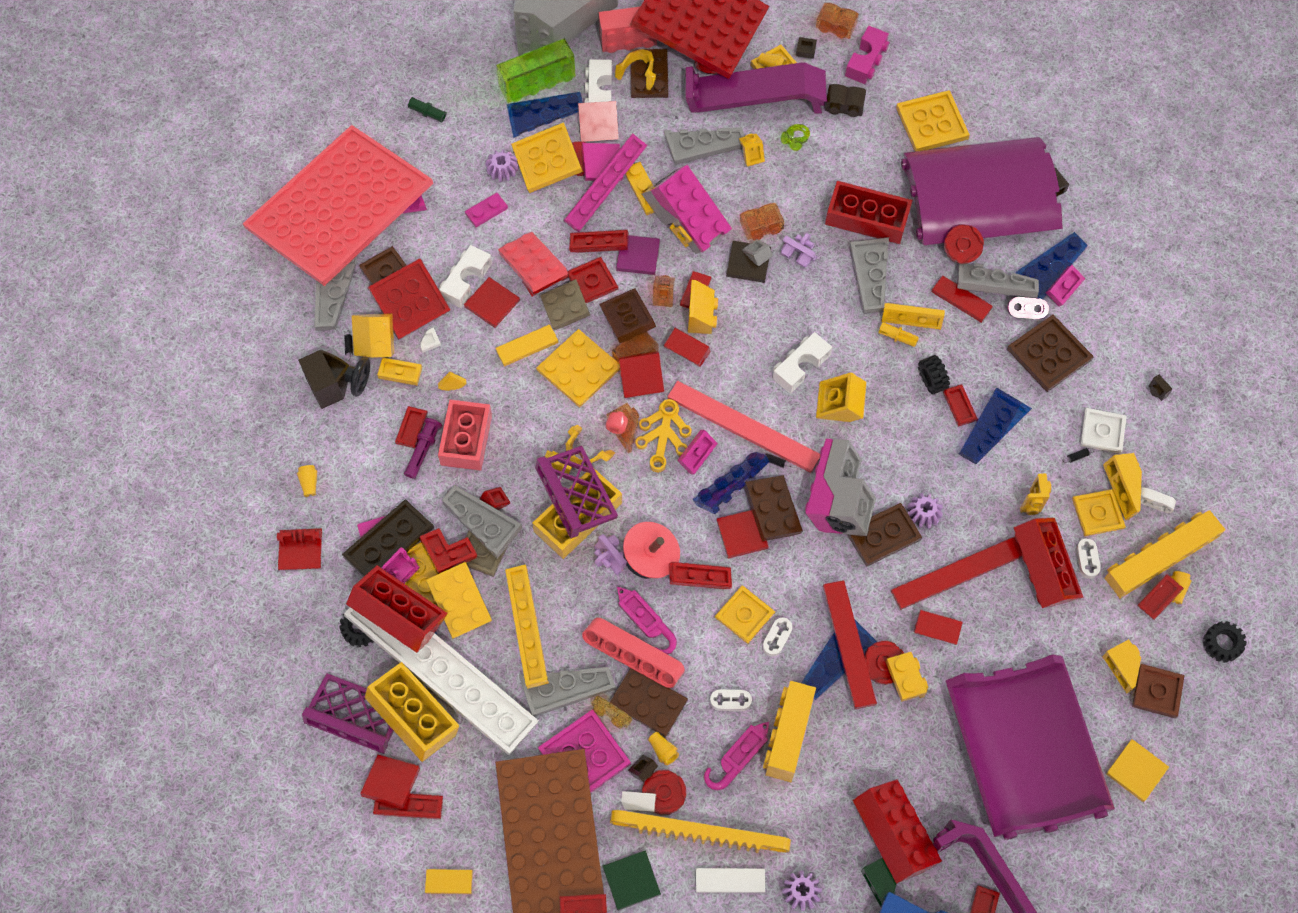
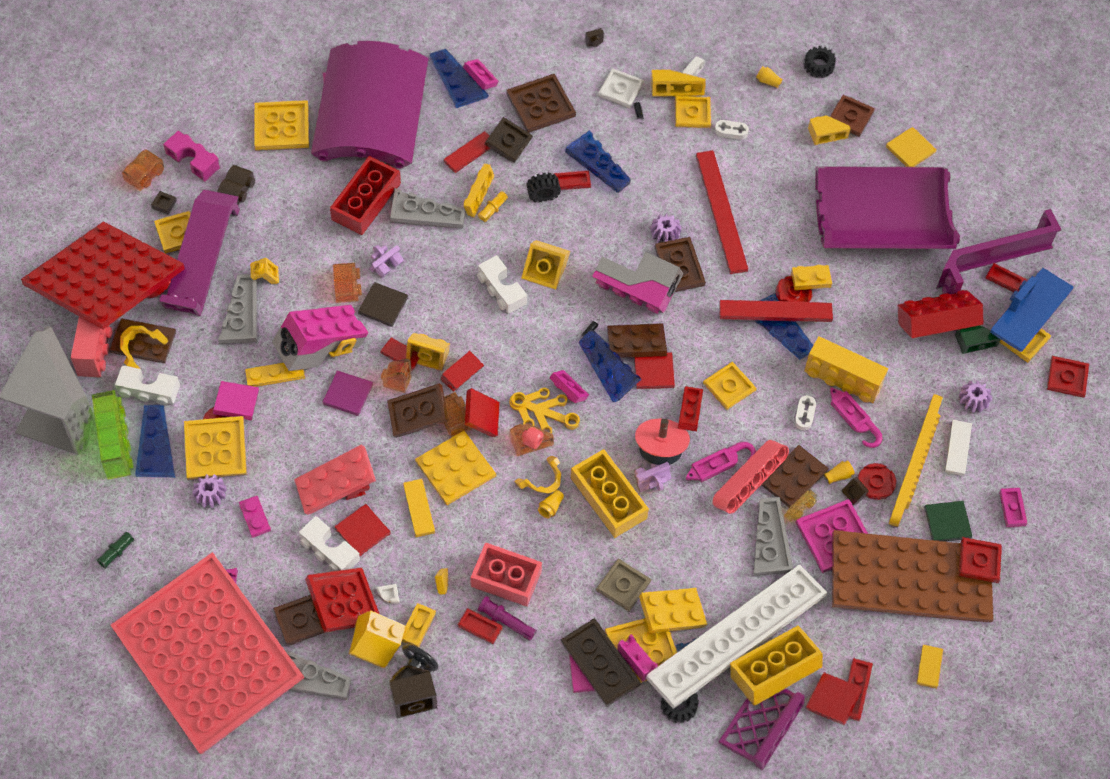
camera: 80 degrees left, 5 degrees down
(299, 549) = (586, 747): red hinge -> none
(308, 478) = (514, 729): yellow cone -> none
(348, 344) = (372, 670): black piece -> none
(396, 608) = (682, 654): red slope -> none
(444, 555) = (627, 614): red plate -> none
(486, 523) = (596, 576): light grey wing -> none
(495, 498) = (576, 567): red slope -> none
(526, 626) = (709, 556): yellow plate -> none
(558, 493) = (598, 496): magenta fence -> none
(565, 305) = (387, 464): dark tan plate -> none
(593, 279) = (365, 433): red tile -> none
(598, 121) = (189, 393): tile -> none
(599, 241) = (324, 422): red tile -> none
(605, 183) = (262, 401): dark pink tile -> none
(638, 801) = (882, 501): white sticker -> none
(744, 427) = (550, 347): coral tile -> none
(758, 252) = (377, 292): light grey slope -> none
(771, 60) = (176, 229): yellow cone -> none
(773, 634) = (755, 365): white beam -> none
(796, 142) = (258, 241): clear neon green piece -> none
(938, 627) = (771, 246): red hinge -> none
(963, 244) = (423, 131): red tile -> none
(988, 331) = (508, 140): none -> dark brown tile
(996, 281) = (462, 122): light grey wing -> none
(1027, 307) = (494, 108): plate -> none
(1038, 495) = (674, 143): yellow bracket -> none
(1047, 562) = (733, 155): red slope -> none
(1160, 597) = (776, 90): red tile -> none
(1164, 553) = (740, 78): yellow brick -> none

